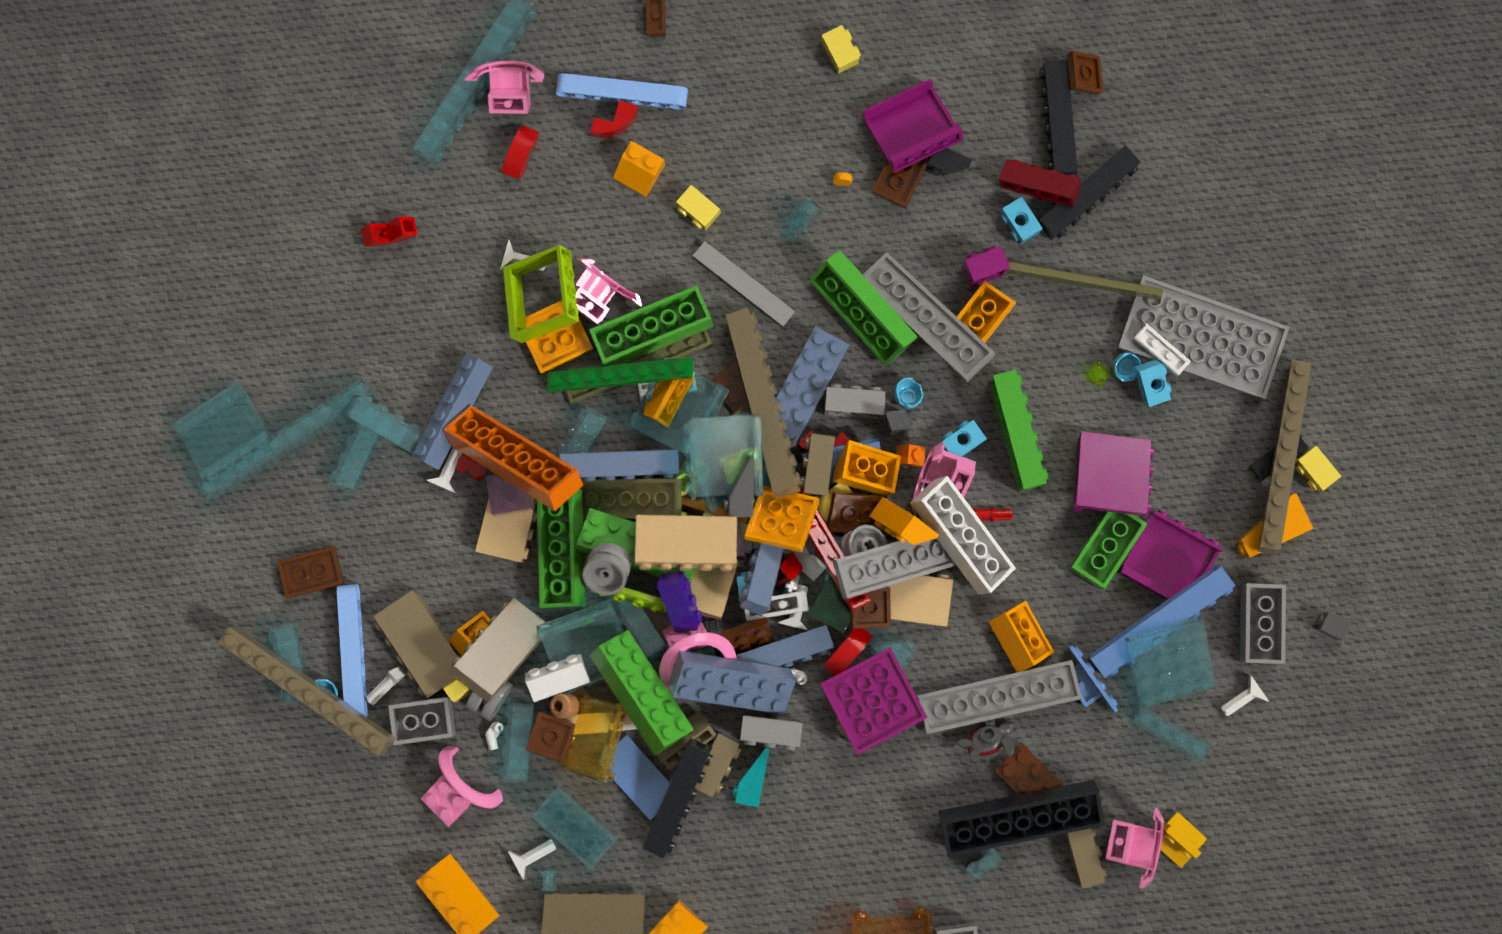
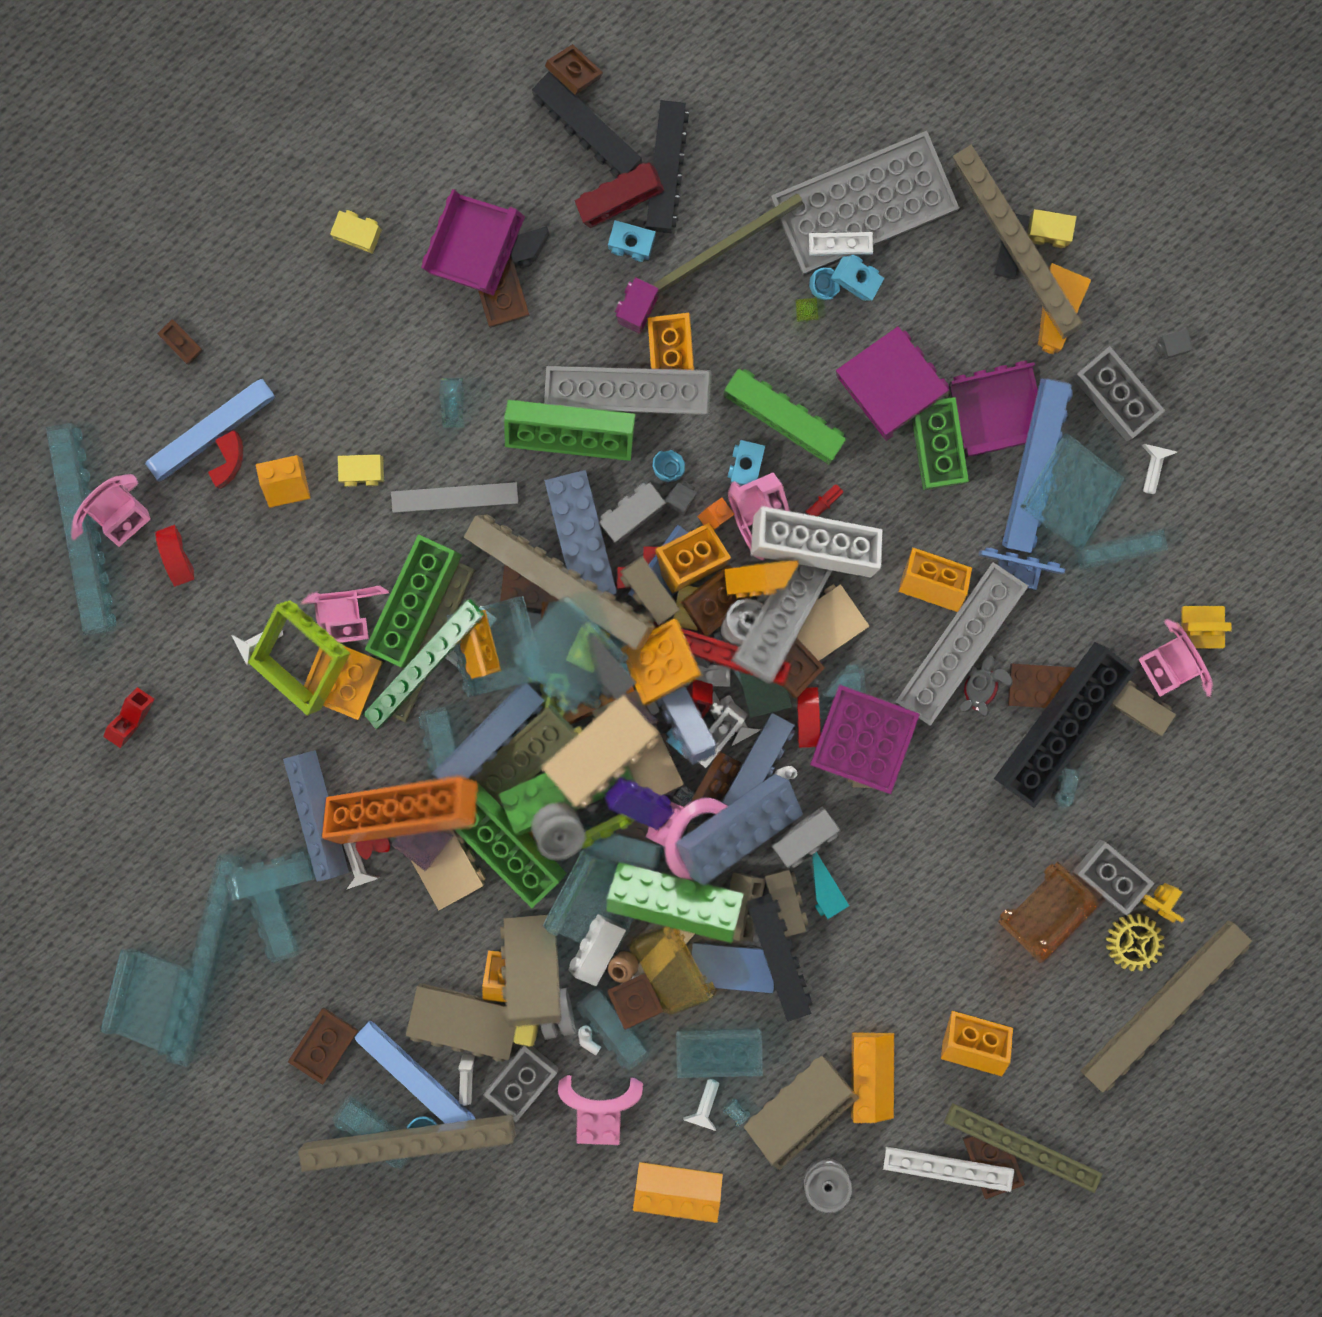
camera: 40 degrees left, 5 degrees up
(842, 179) = (456, 338): light orange tile -> none

